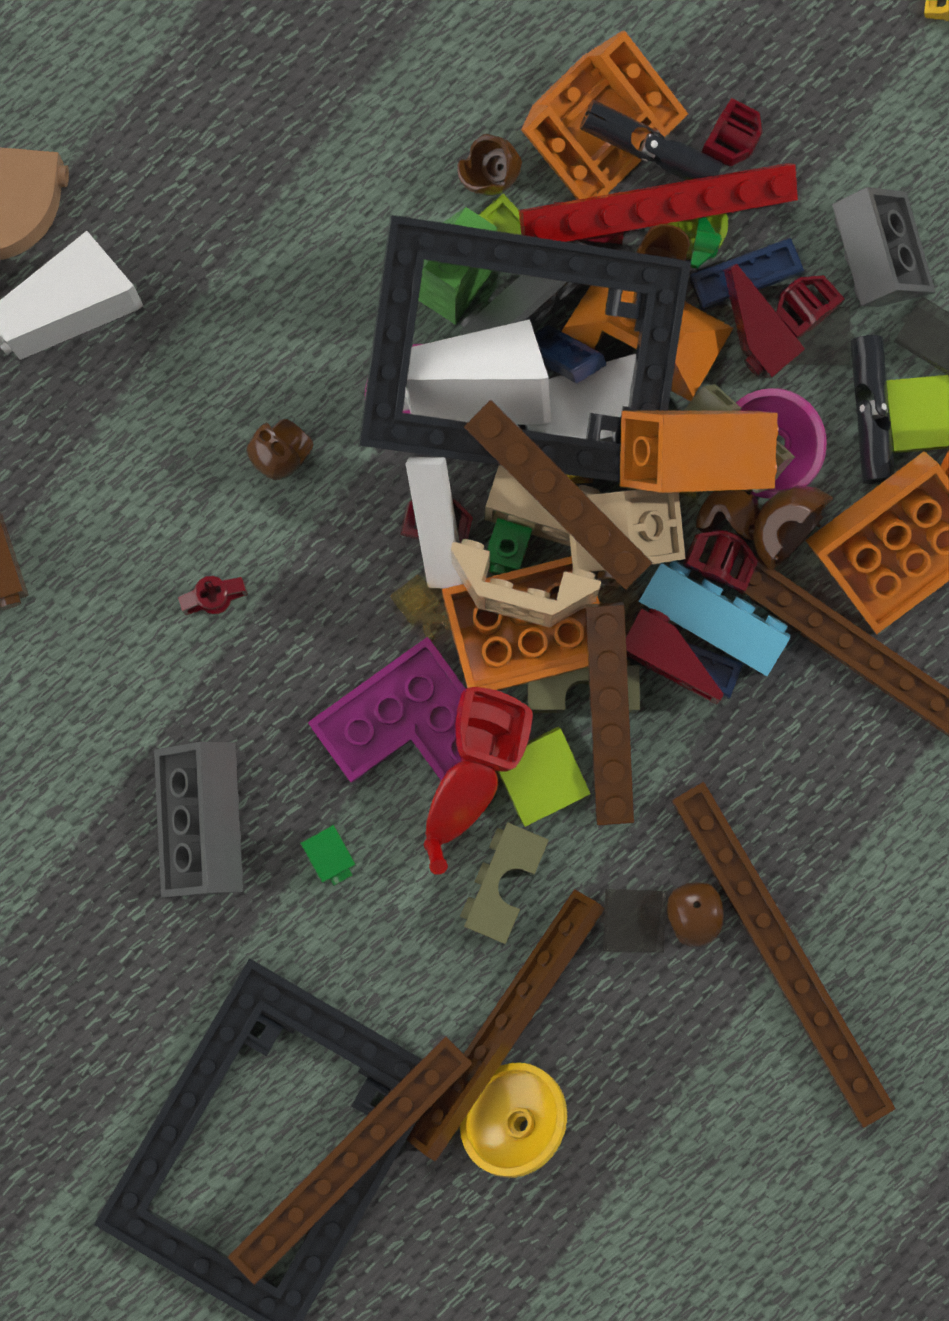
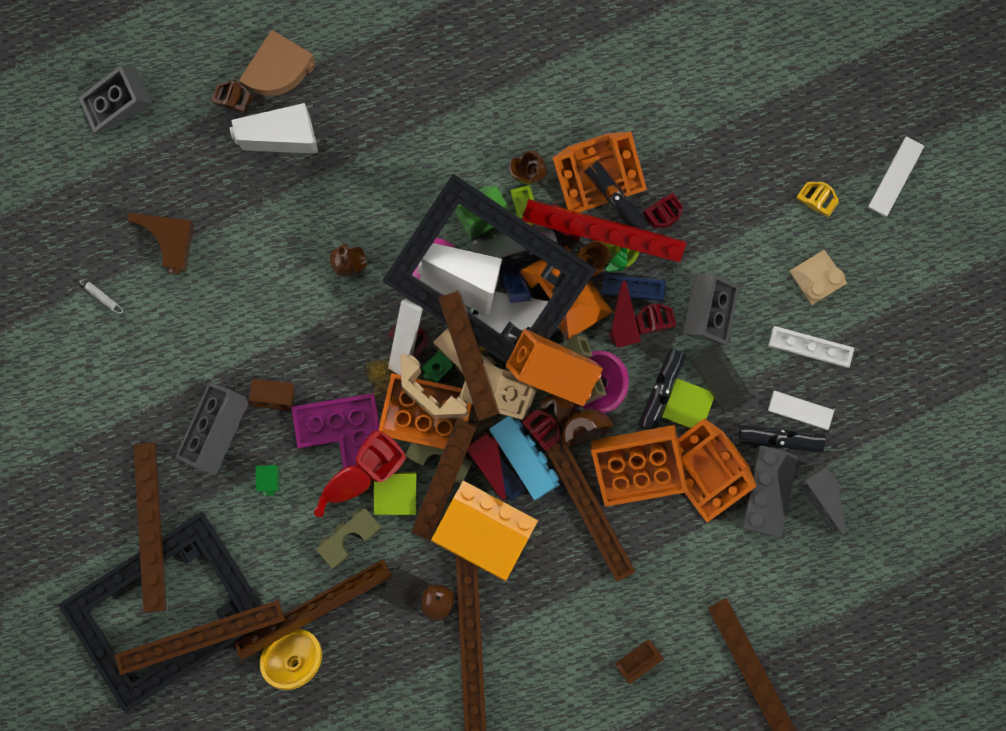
camera: 30 degrees right, 0 degrees up
(180, 1027) = (149, 528): none -> reddish brown plate
(214, 596) = (276, 318): dark red piece -> none
(266, 719) = (272, 394): none -> reddish brown hinge
(714, 763) = (484, 530): none -> light orange slope

